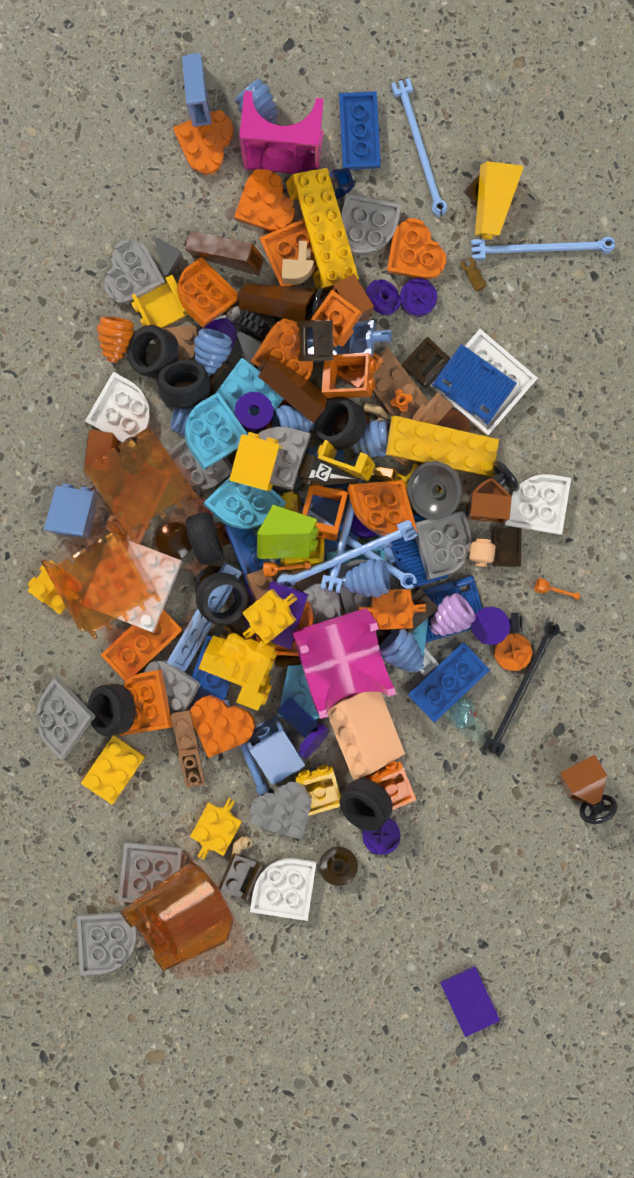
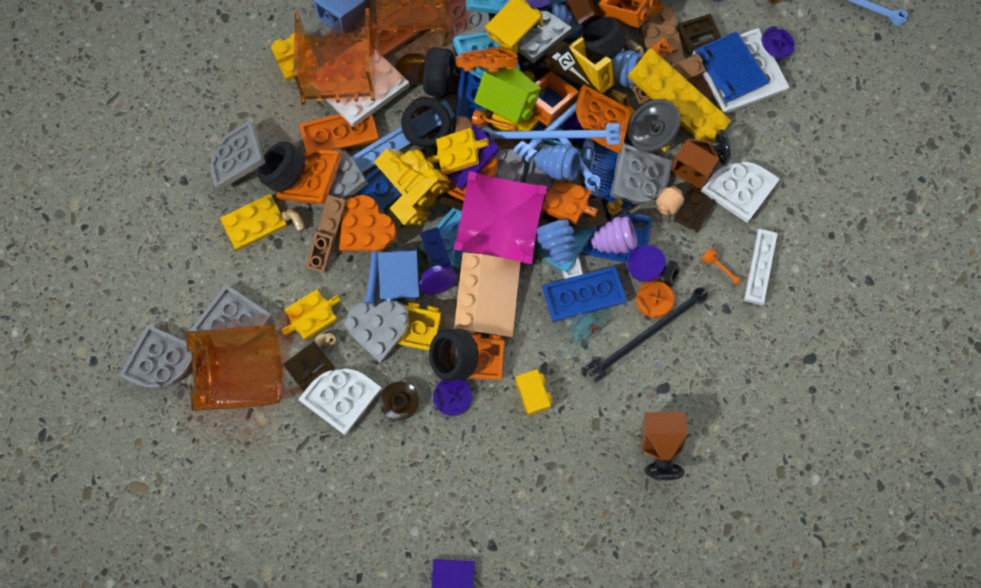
camera: 30 degrees right, 15 degrees down
(150, 746) = (296, 218): none -> tan arm
(252, 512) = (488, 58): none -> orange plate
(436, 589) = (613, 209): none -> pearl gold bar
(450, 797) = (533, 392): none -> yellow brick
(505, 335) = (778, 43): none -> dark purple tile
(592, 573) = (760, 267): none -> white plate

